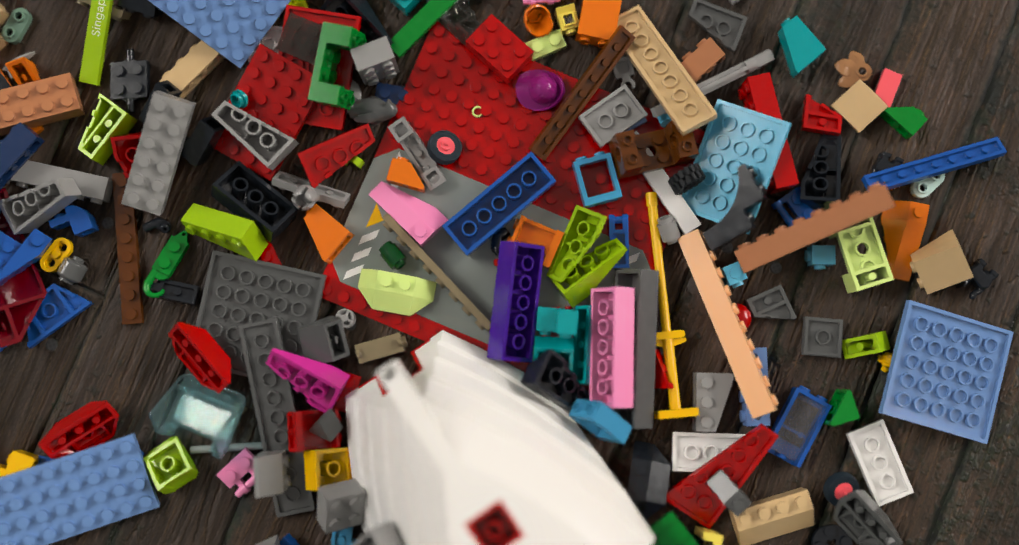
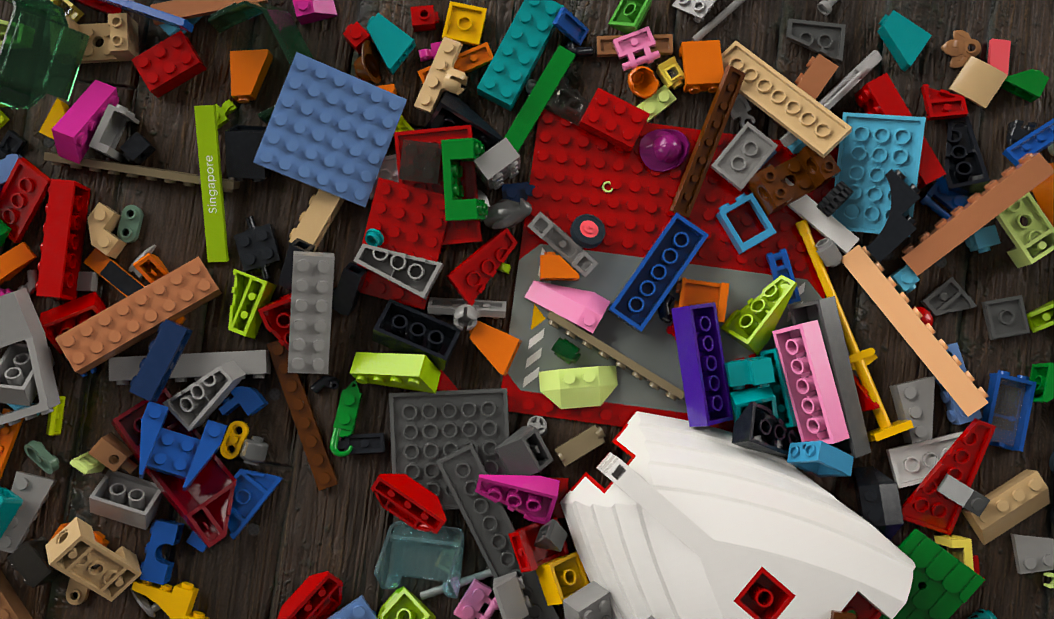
camera: 10 degrees left, 0 degrees up
(578, 238) = (746, 284): lime wedge -> none

